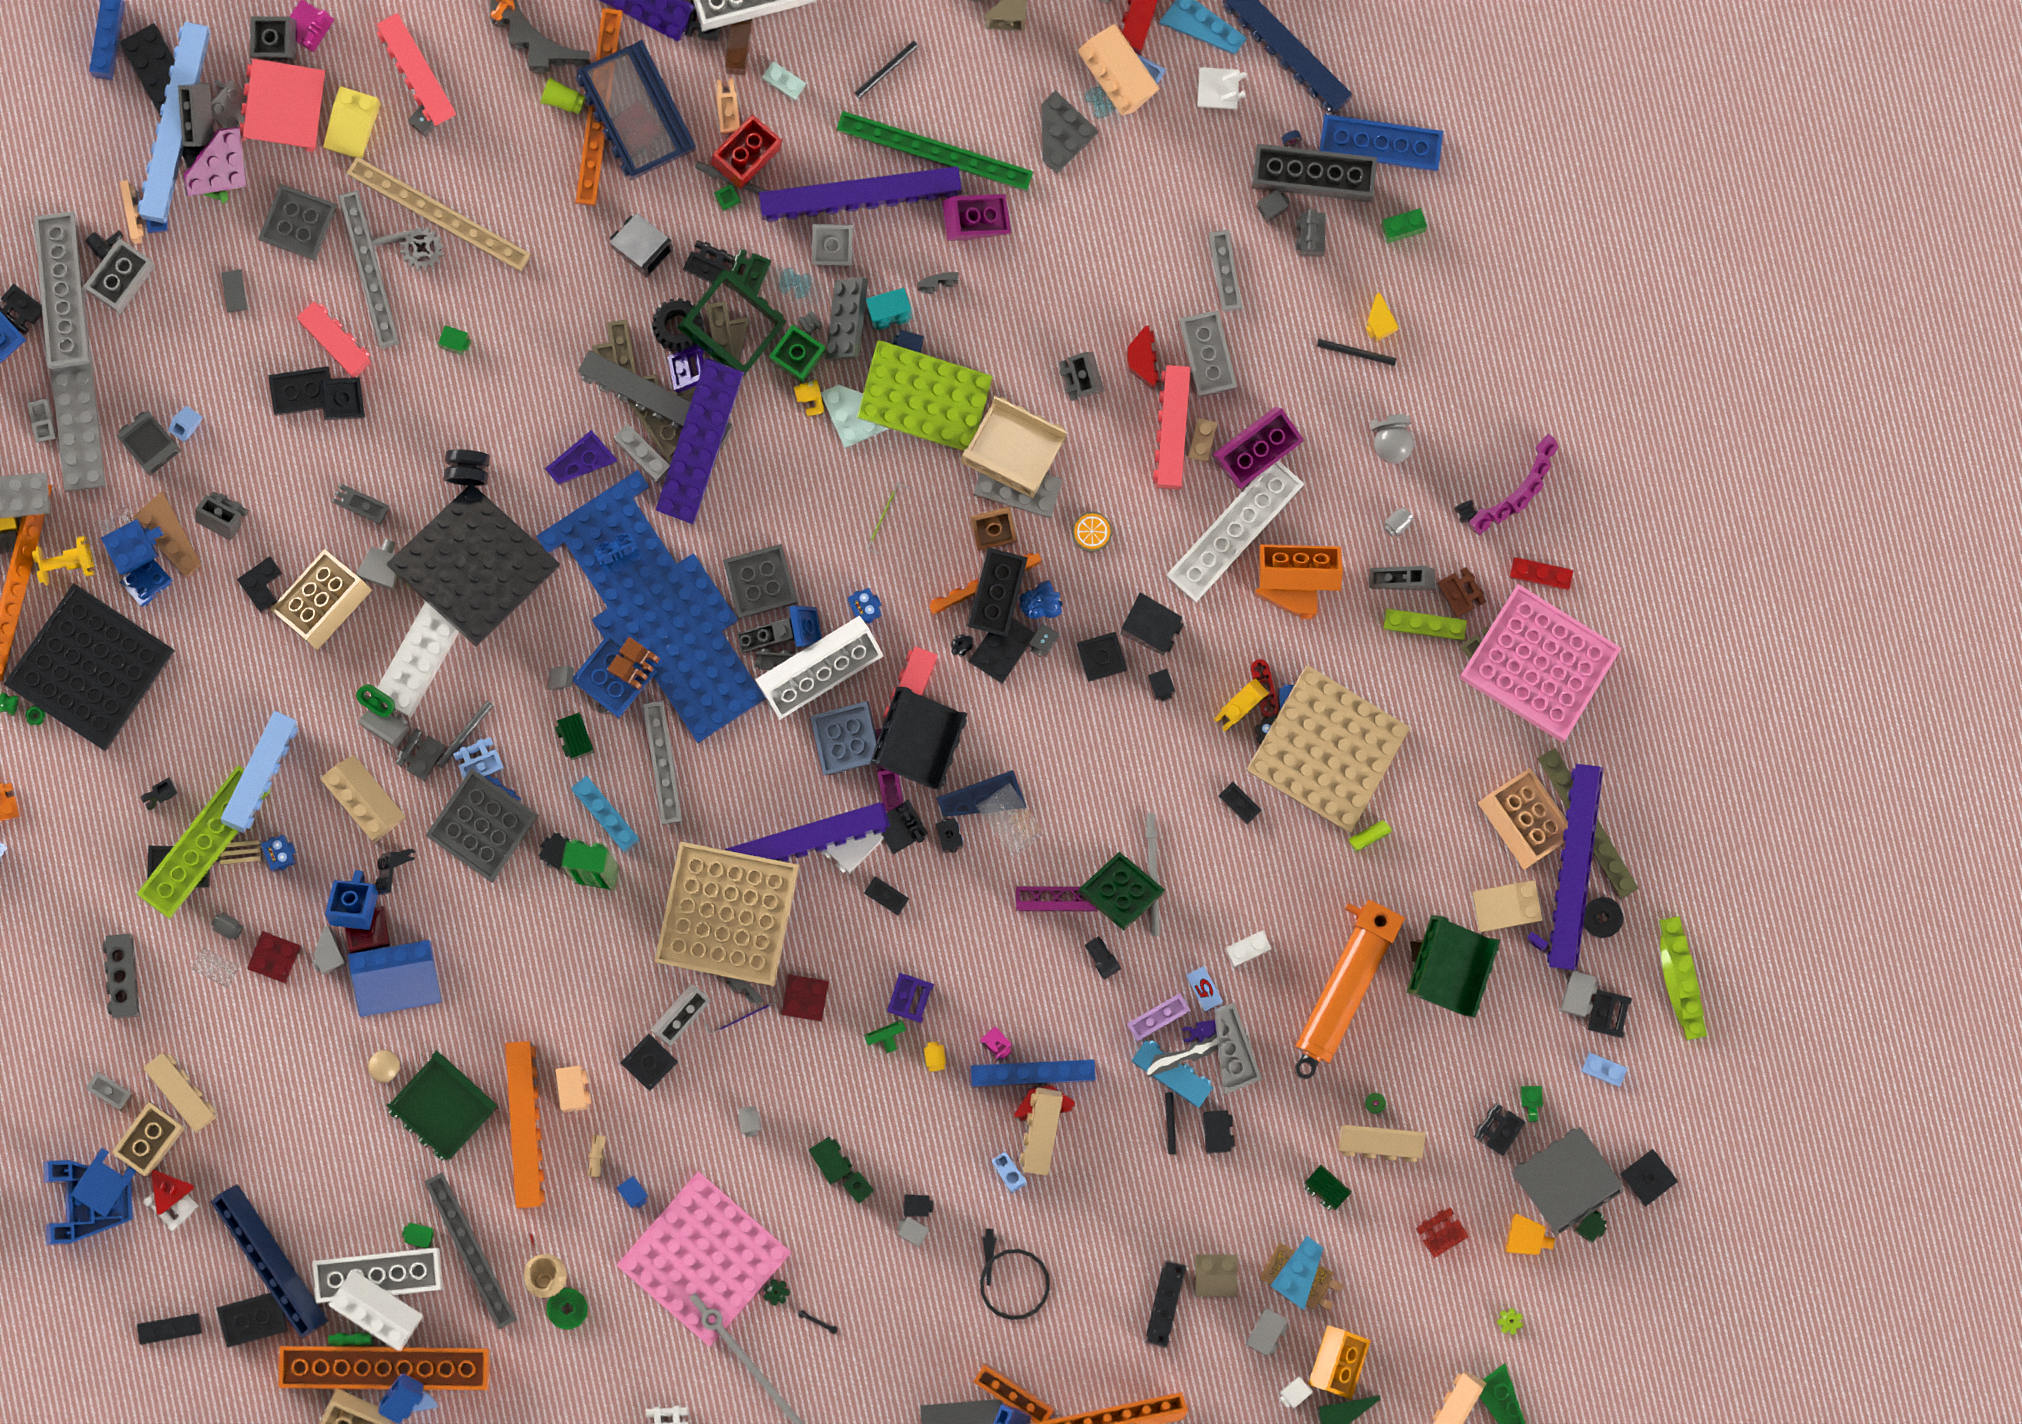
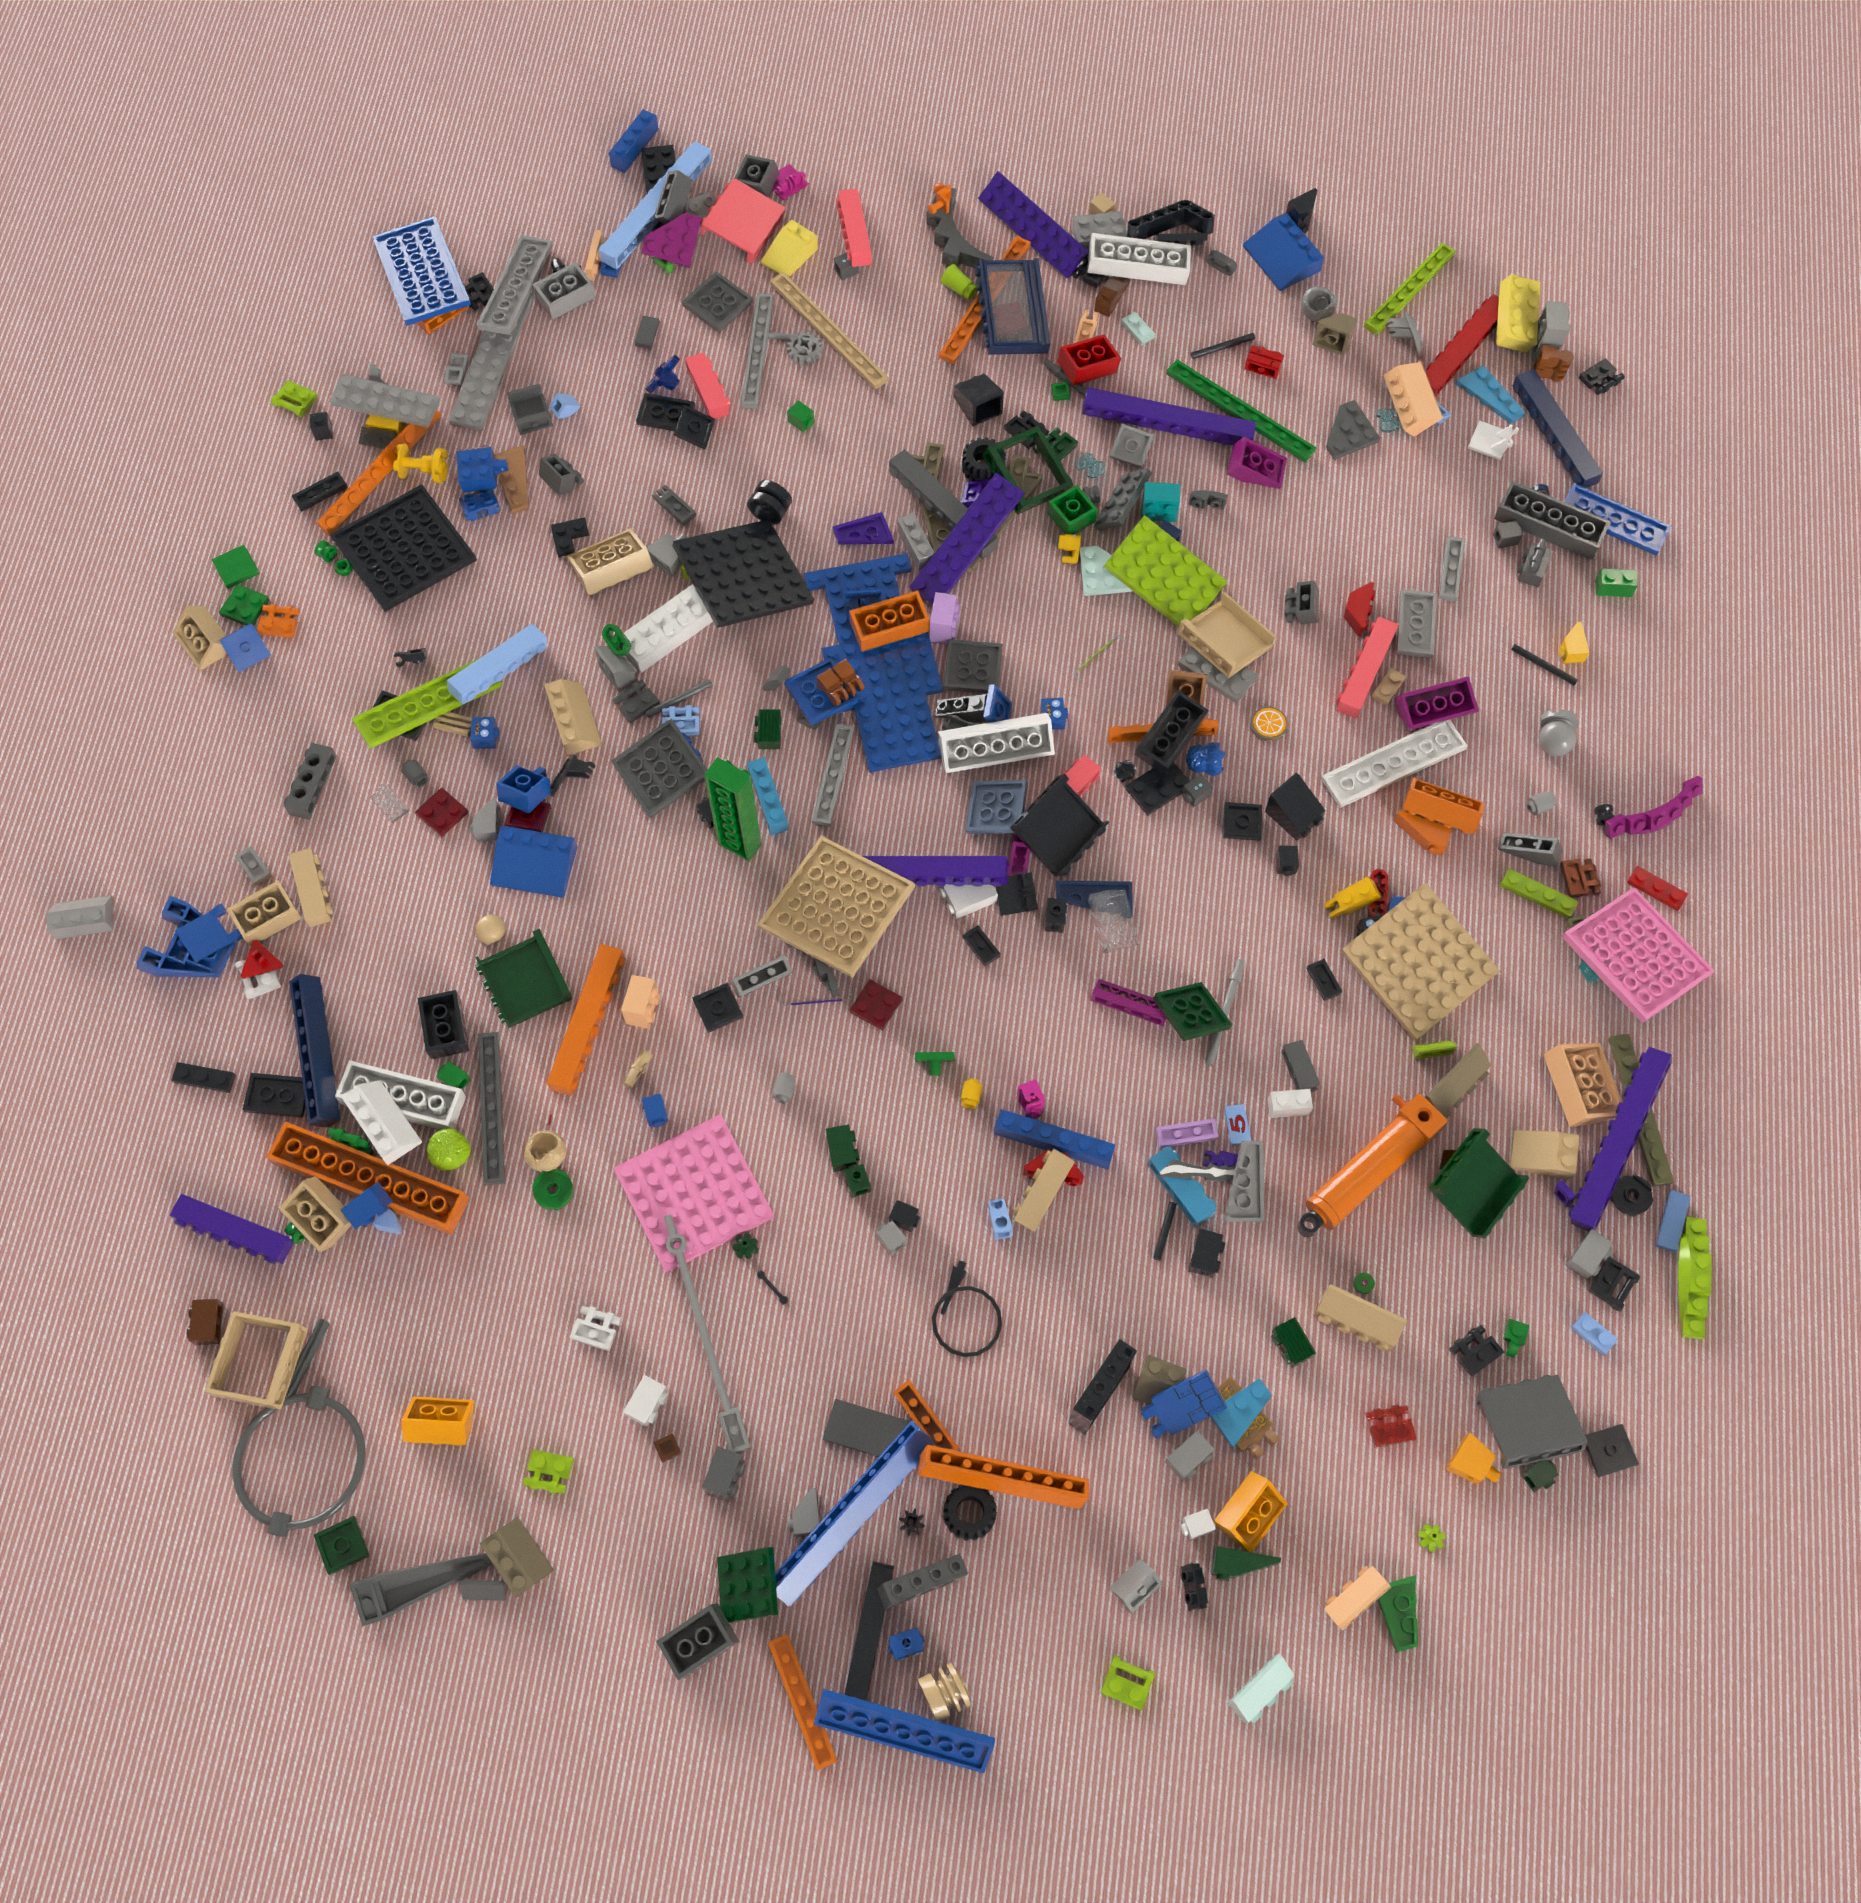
camera: 25 degrees right, 15 degrees down
(281, 346) = (664, 376): none -> clear blue plant
(385, 1186) = (443, 1024): none -> black brick
(449, 1310) = (448, 1149): none -> lime hair
(654, 567) = (889, 621): none -> orange brick
(708, 539) = (944, 618): none -> lavender brick
(904, 994) = (963, 1033): dark purple plate -> none
(940, 76) = (1264, 361): none -> red brick
(1105, 962) = (1155, 1068): black piece -> none
(1245, 1288) = (1184, 1404): none -> blue tile
(1246, 907) = (1300, 1066): none -> dark grey piece
(1402, 868) = (1460, 1081): none -> dark tan slope
(1648, 928) = (1673, 1221): none -> medium blue tile

